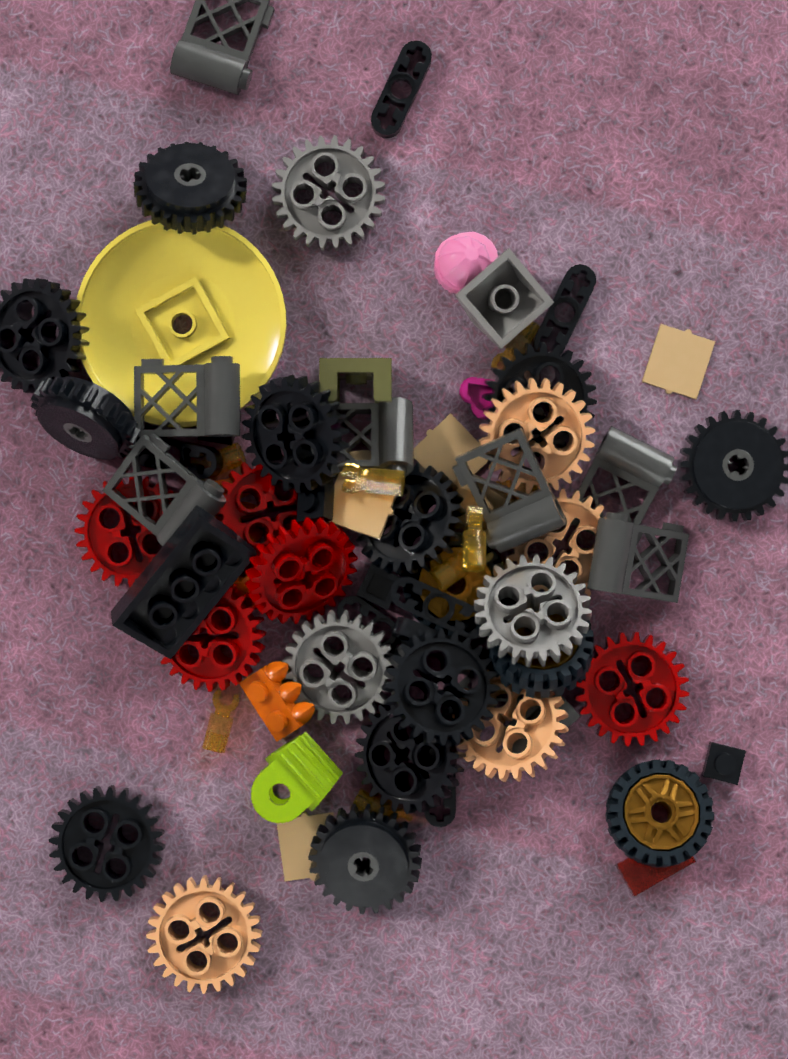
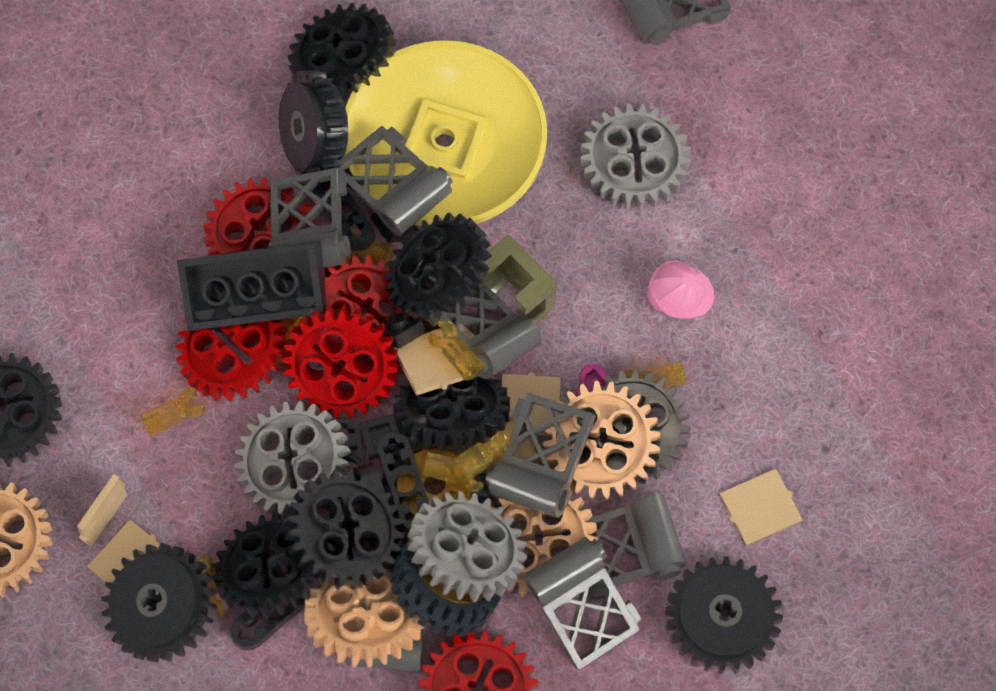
camera: 40 degrees right, 20 degrees down
(190, 187) = (545, 59): black gear -> none
(257, 841) = (102, 510): none -> tan piece
(276, 699) = (224, 435): orange plate -> none
(305, 772) = (186, 502): lime piece -> none
(420, 69) = (731, 142): black beam -> none
(503, 299) = (679, 332): light grey slope -> none
(567, 285) = (741, 392): black beam -> none

